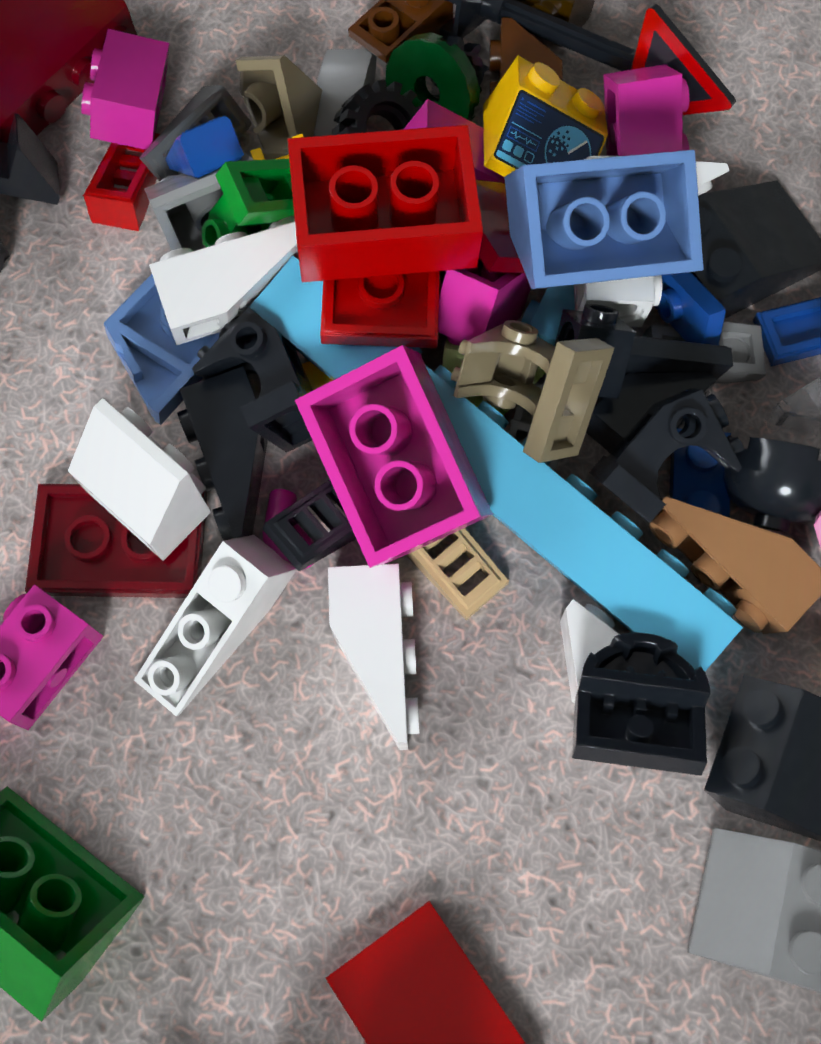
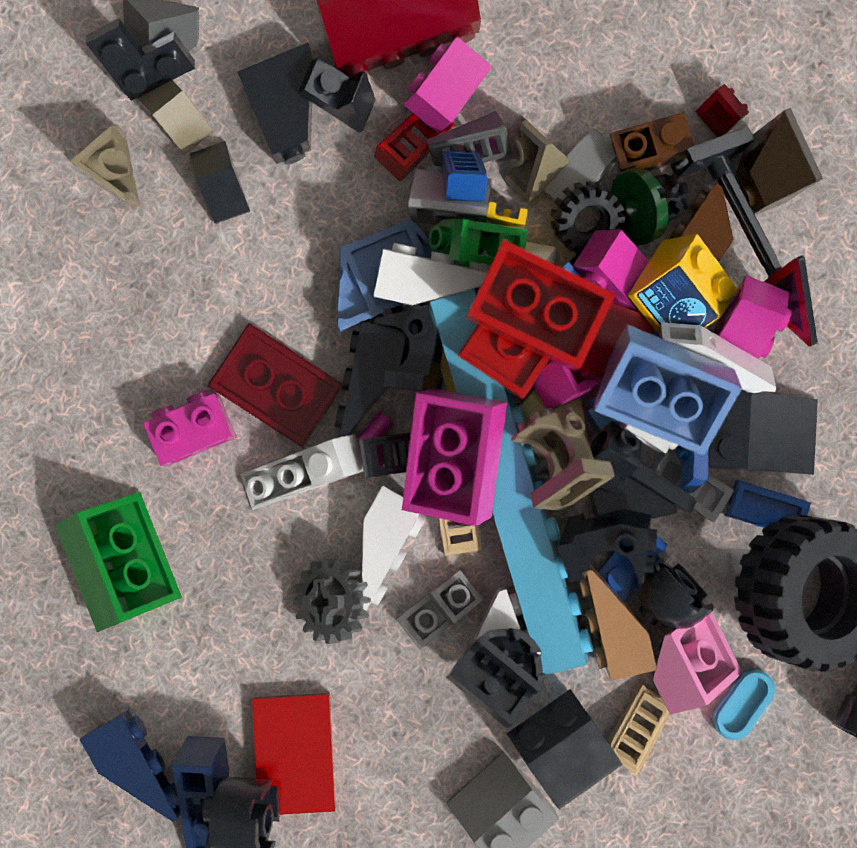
camera: 25 degrees right, 15 degrees up
(137, 479) = (303, 369): white slope -> none
(353, 767) = (331, 601): none -> dark grey gear
(503, 691) = (439, 609): none -> light grey slope

